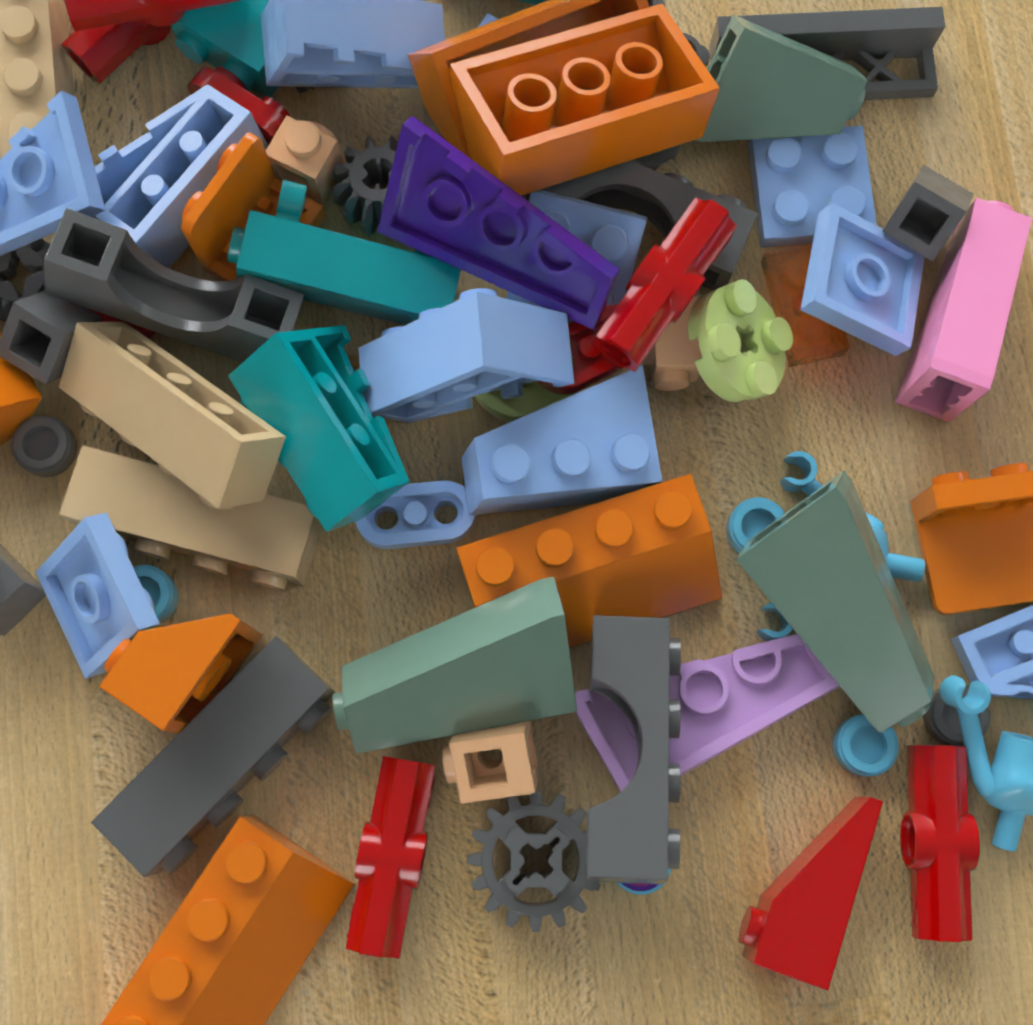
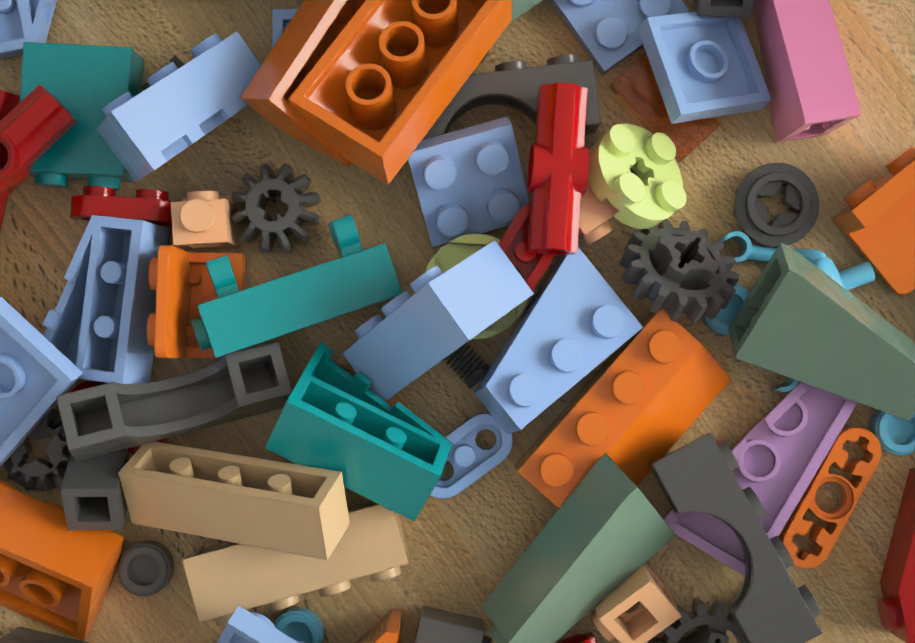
camera: 25 degrees left, 10 degrees up
(475, 411) = (467, 366): none -> dark grey piece
(482, 226) = (387, 211): dark purple wing -> none
(729, 454) = (679, 271): none -> dark grey gear
(802, 761) = (851, 493): none -> orange beam
(862, 428) = (797, 194): none -> dark grey gear

